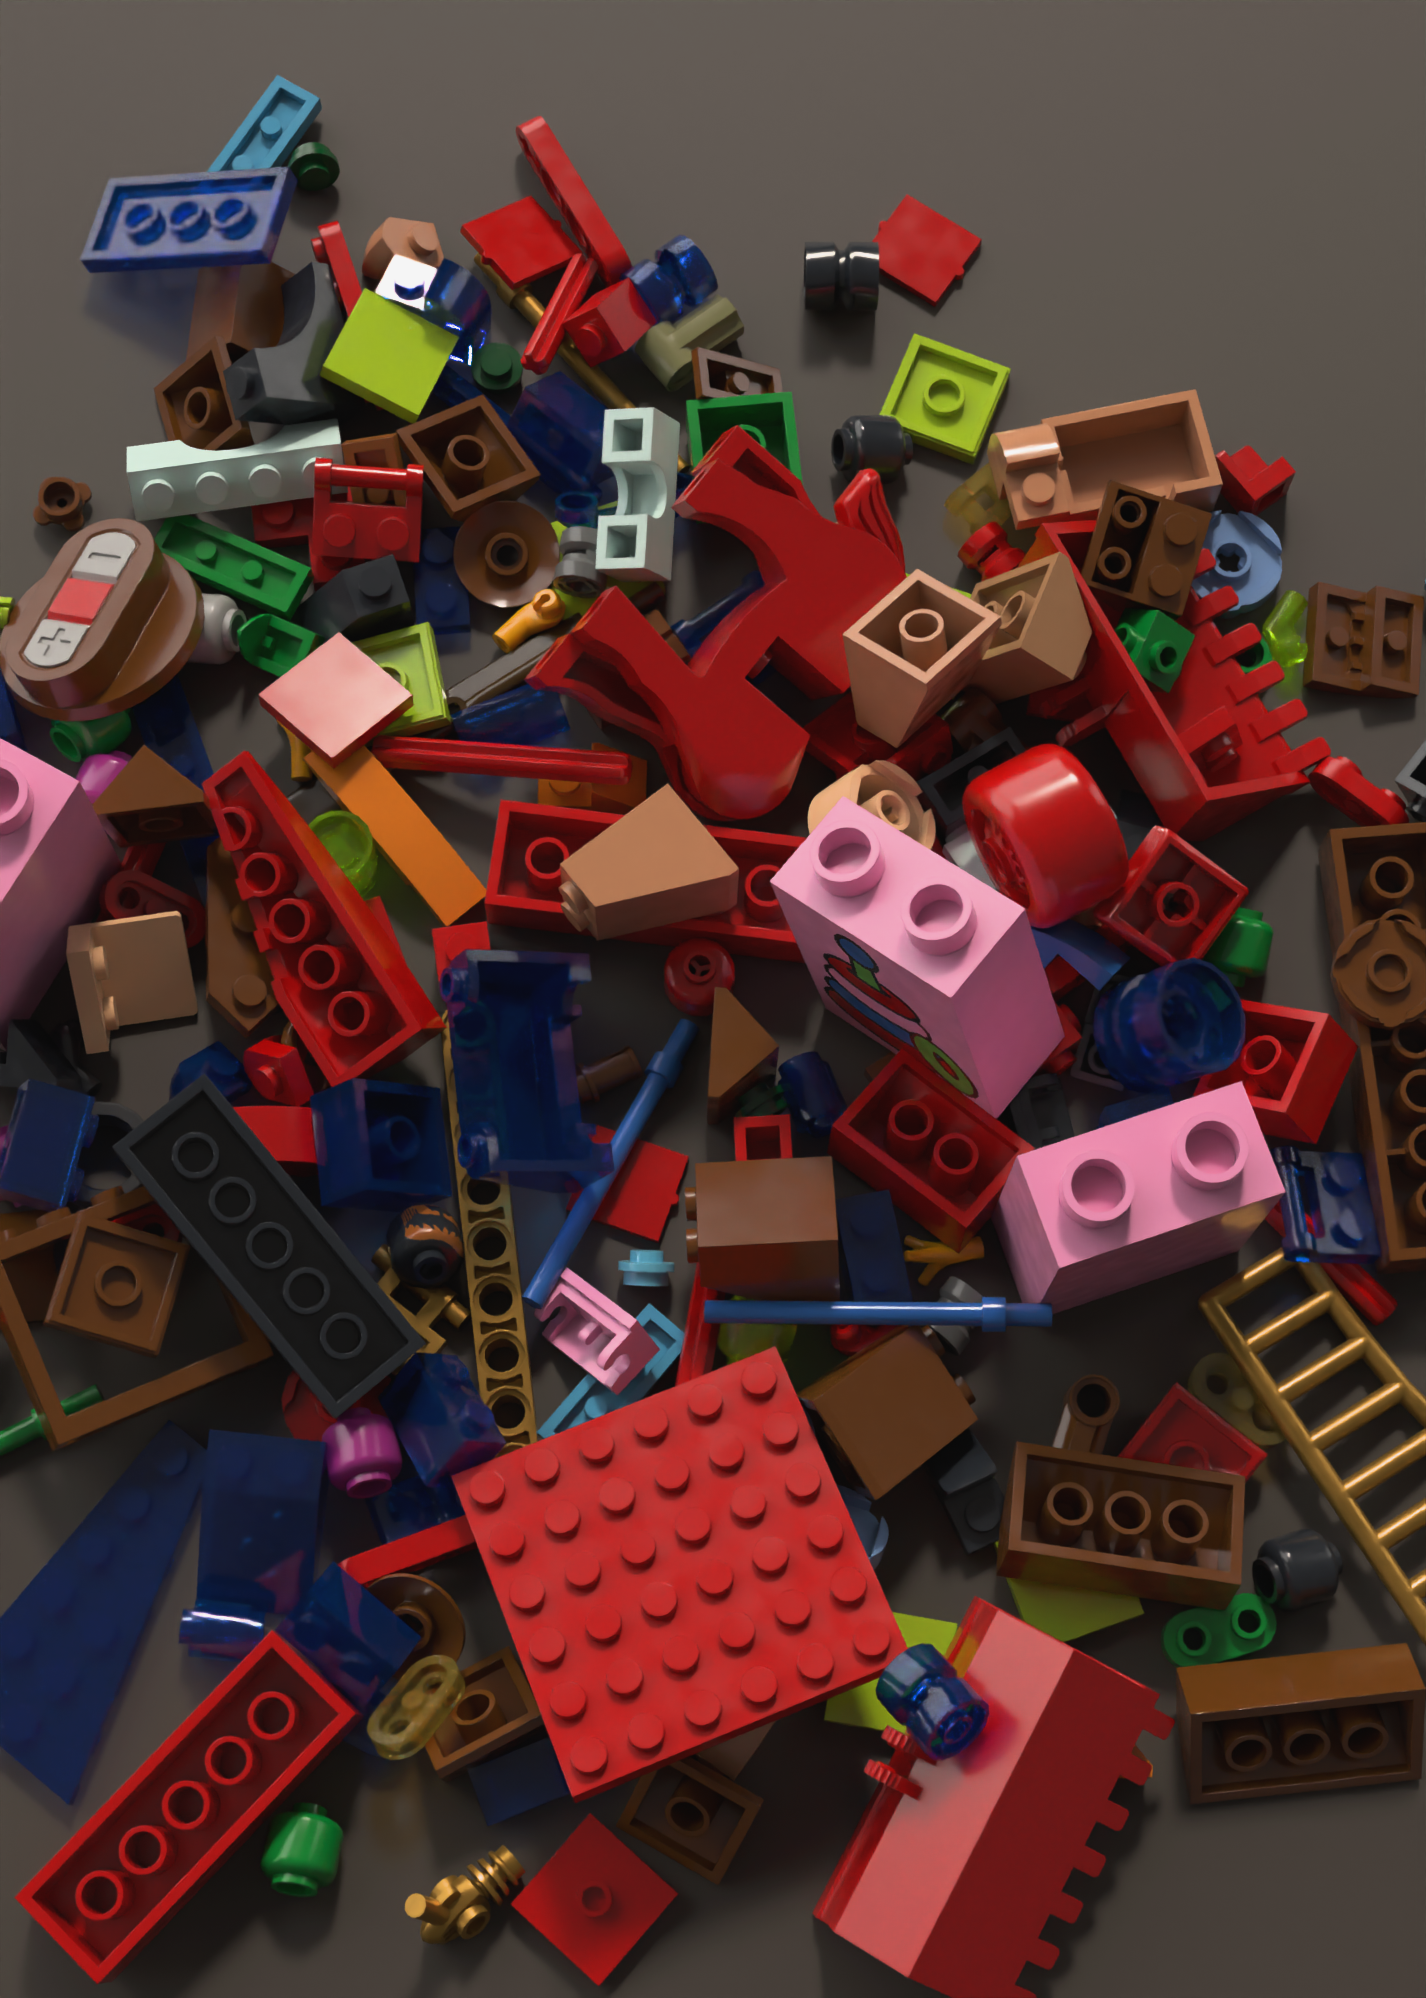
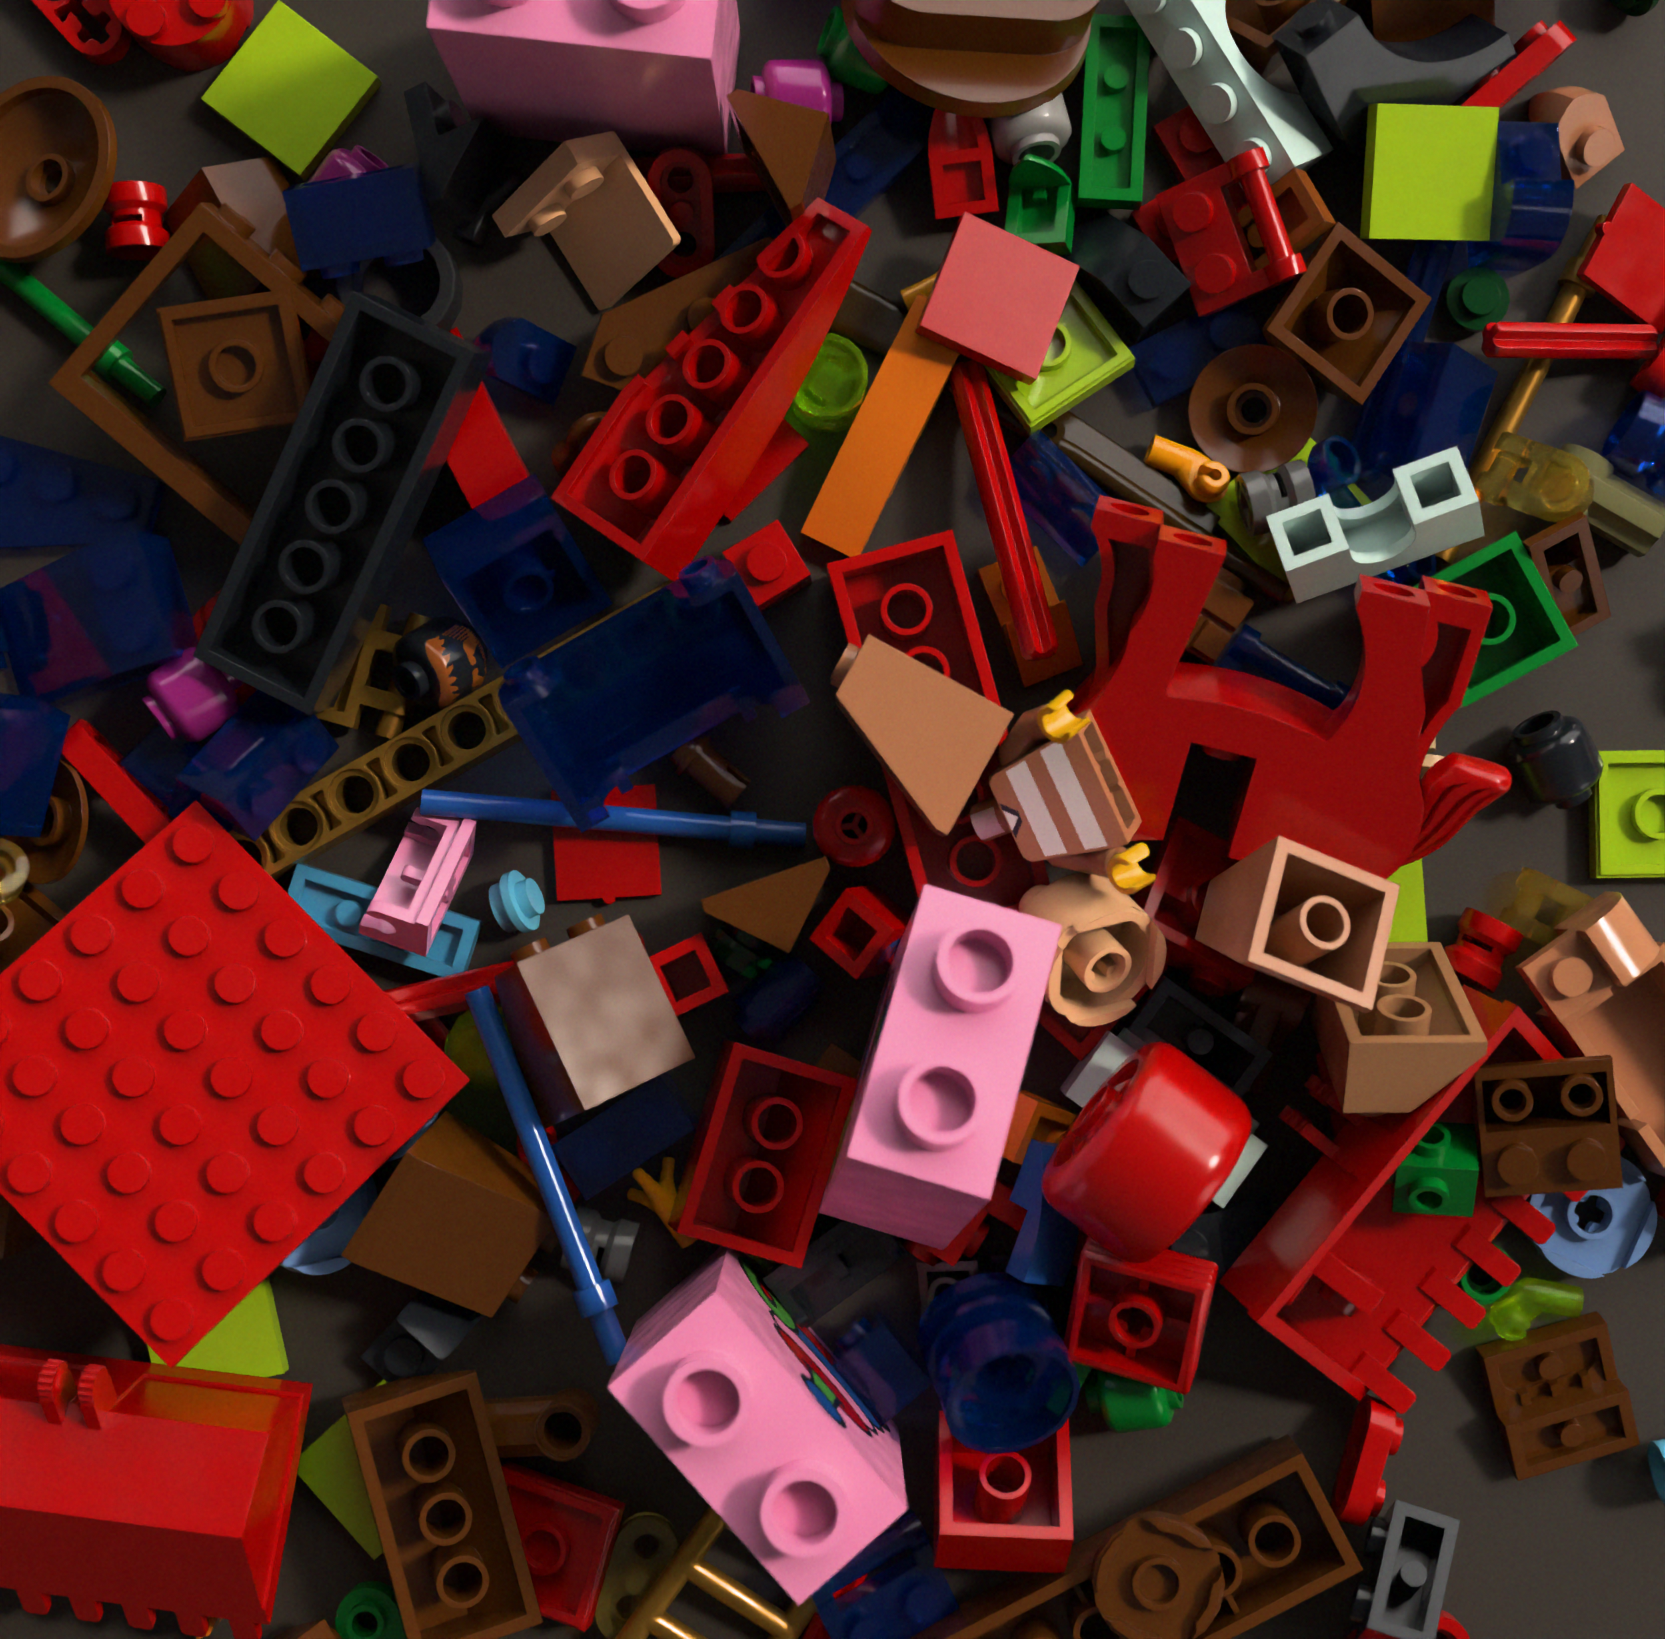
camera: 75 degrees right, 15 degrees up
(218, 690) = (960, 166): none -> red plate
(278, 1071) = (554, 426): red plate -> none
(609, 322) = (1581, 402): red brick -> none
(663, 361) = (1552, 488): none -> clear yellow plate
(748, 787) = (1064, 798): none -> torso
(786, 1000) = (862, 931): none -> red brick
(932, 1701) = (140, 1400): clear blue wheel -> none

